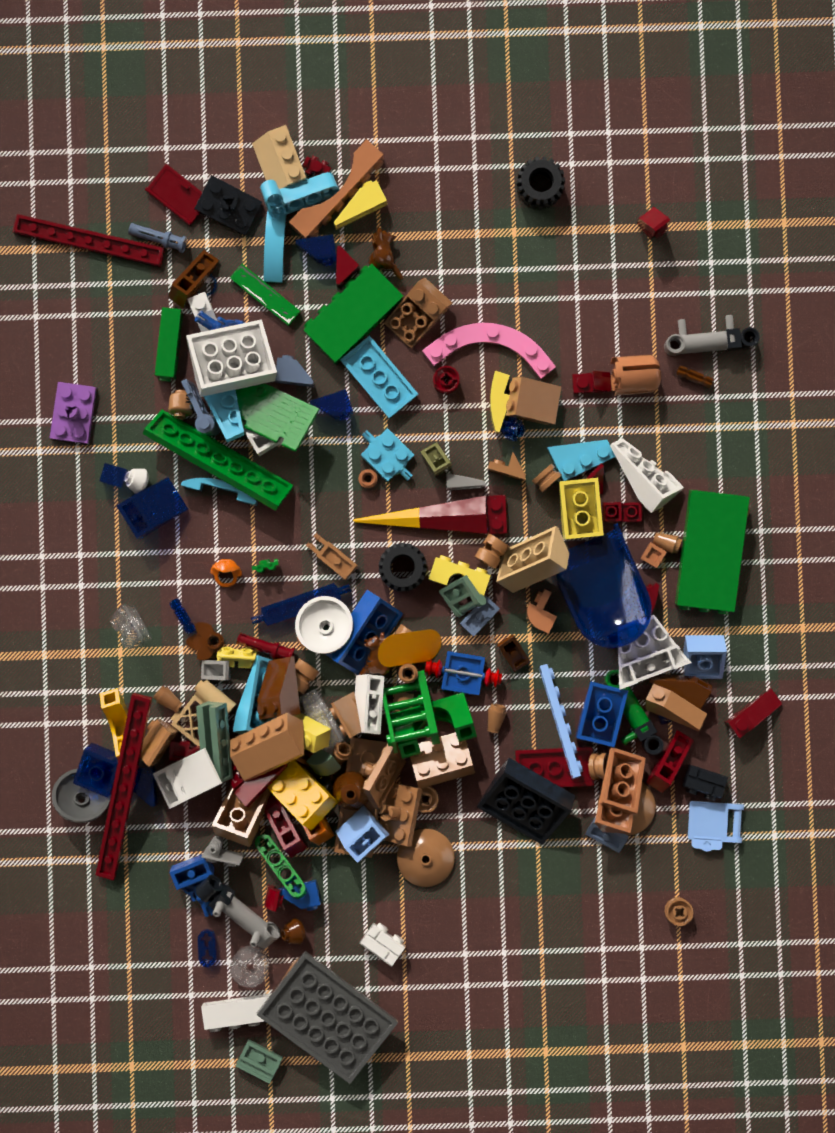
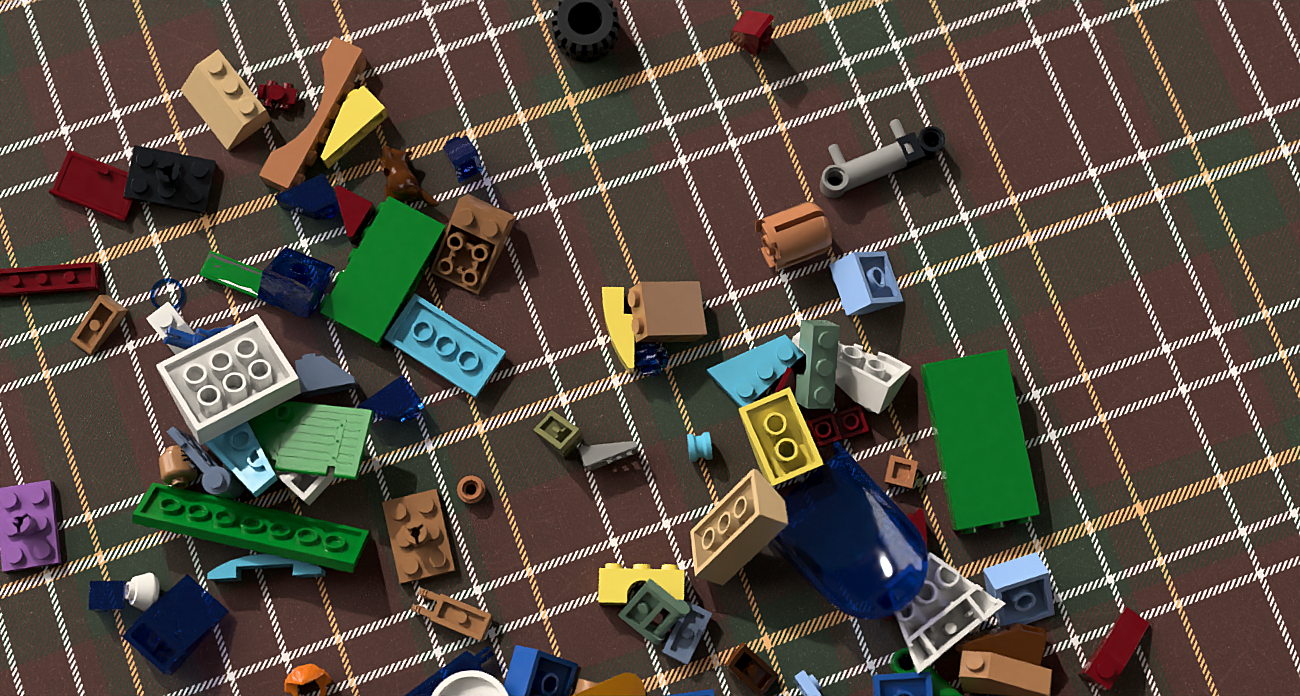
camera: 20 degrees left, 10 degrees down
(153, 291) = (98, 324): none -> medium nougat slope
(167, 237) = (97, 246): sand blue pin -> none
(168, 344) = (138, 389): green brick -> none
(192, 278) = (146, 291): reddish brown slope -> none
(266, 564) = (361, 654): green piece -> none
(274, 248) = (249, 213): medium azure slope -> none
(292, 303) = (295, 282): none -> clear blue slope
(298, 195) = (257, 141): medium azure beam -> none
(324, 498) = (418, 536): none -> medium nougat plate
(387, 455) = (488, 449): medium azure plate -> none
(390, 555) = (551, 573): black tyre -> none
(428, 251) = (462, 158): none -> clear blue slope
(446, 371) = (532, 330): dark red wheel -> none
(470, 515) = (633, 495): dark red plate -> none
(492, 334) = (581, 242): bright pink plate -> none
(492, 551) = (675, 536): medium nougat wheel -> none
(513, 470) = (669, 416): medium nougat slope -> none
(526, 497) = (699, 446): none -> medium azure wheel
(537, 616) = (770, 608): nougat brick -> none
(546, 477) = (719, 411): medium nougat wheel -> none
(591, 382) = (739, 265): dark red slope -> none
(627, 455) = (820, 343): none -> sand green arch
(668, 542) = (915, 448): medium nougat cone -> none
(672, 421) = (865, 282): none -> light blue slope
(694, 376) = (875, 215): reddish brown axle -> none

